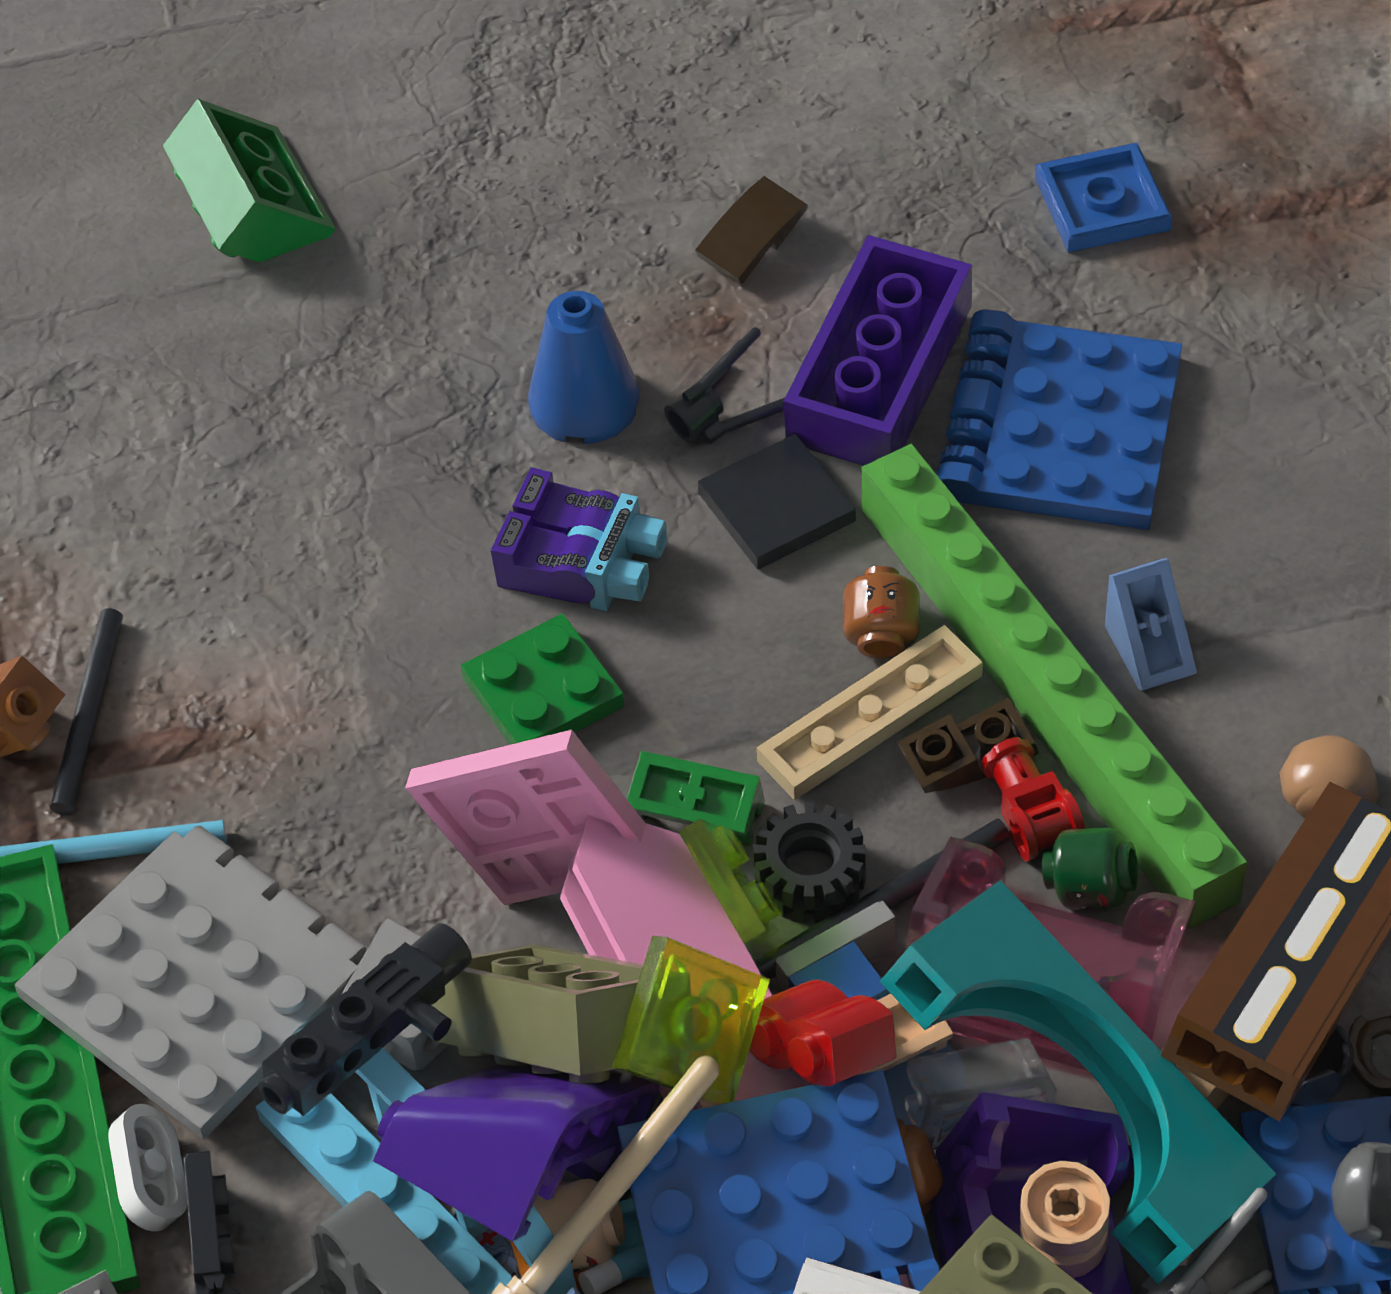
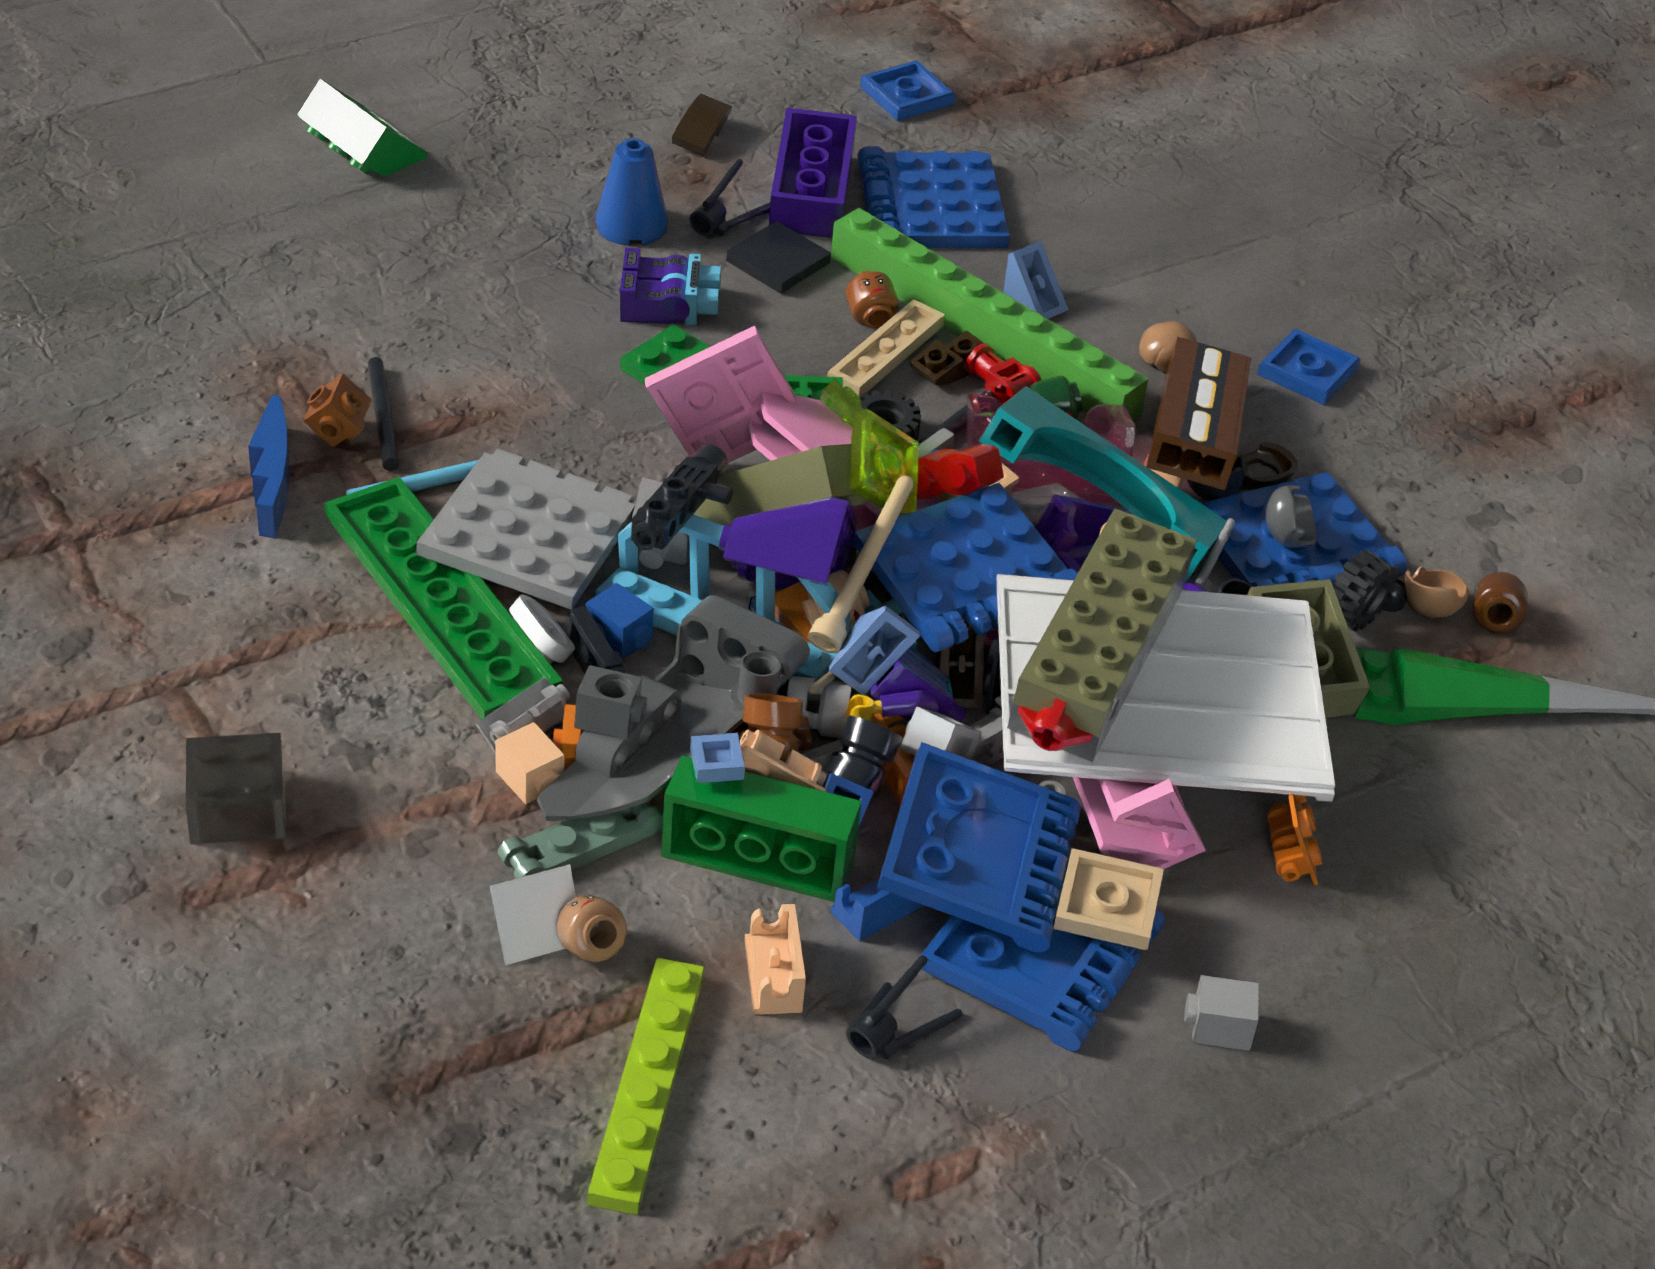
camera: 25 degrees left, 10 degrees down
(264, 1176) = (624, 619): none -> blue brick

